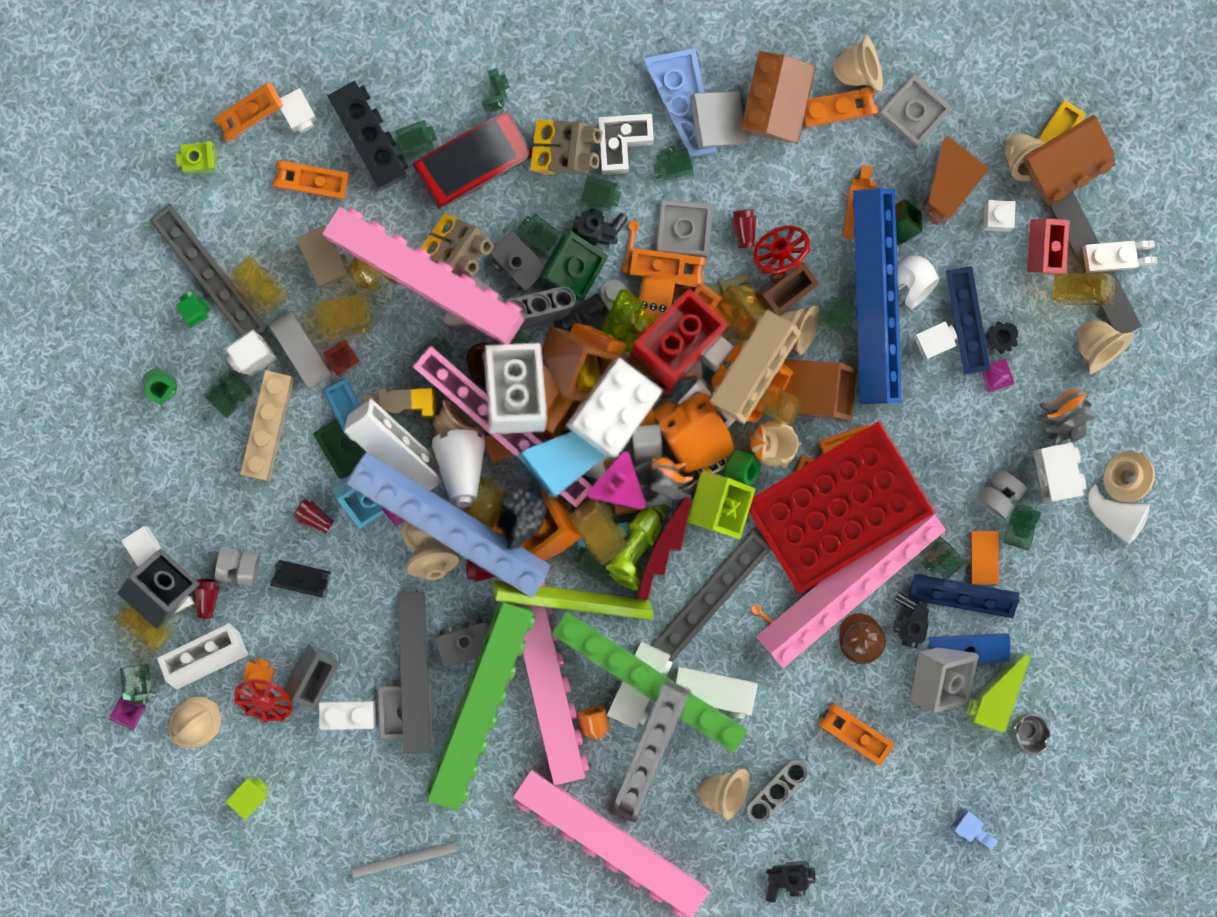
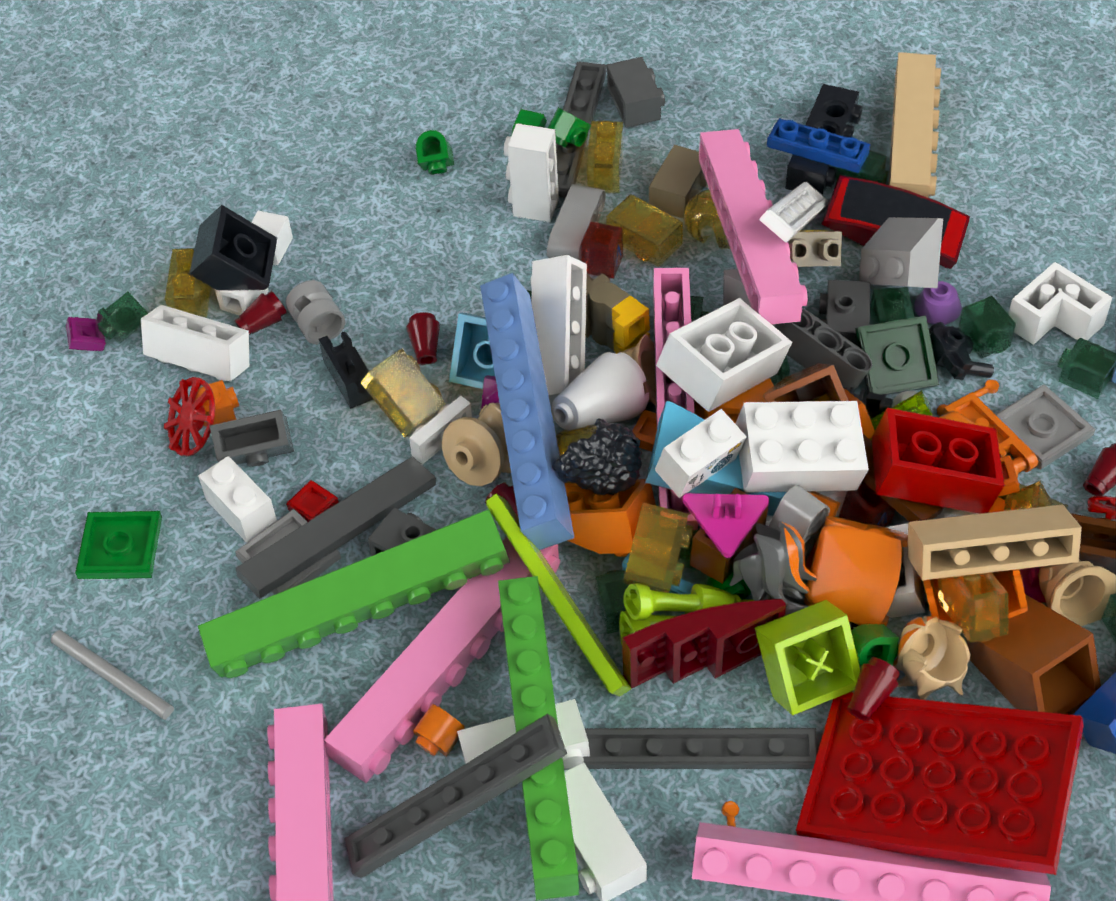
camera: 55 degrees right, 35 degrees down
(194, 722) = (117, 390): tan piece -> none
(205, 162) = (662, 51): lime brick -> none
(219, 214) = (635, 91): none -> dark grey brick
(220, 290) = (569, 128): none -> green plate
(227, 393) = (478, 199): clear green wheel -> none
(248, 797) = (70, 481): lime brick -> none
(249, 111) = (744, 50): orange plate -> none
(267, 425) = (477, 244): tan brick -> none
(298, 111) = (785, 83): white brick -> none
(311, 180) = (729, 117): orange plate -> none
(315, 798) = (119, 545): none -> green tile
(354, 567) = (403, 392): none -> clear yellow brick
(364, 161) = (818, 145): none -> blue tile
(380, 671) = (312, 501): none -> red tile
(394, 575) = (427, 438): none -> white plate
(407, 70) = (914, 124): none -> tan brick
(435, 237) = (794, 211): none -> white tile
(499, 84) = (973, 200): clear green bracket -> none
(515, 198) = (903, 253): none -> light grey slope
(558, 204) = (938, 304): none -> medium lavender cone
(565, 147) = (994, 266): dark tan hips -> none
(576, 469) = (700, 453): none -> white brick
(765, 489) = (872, 688): none -> dark red cone

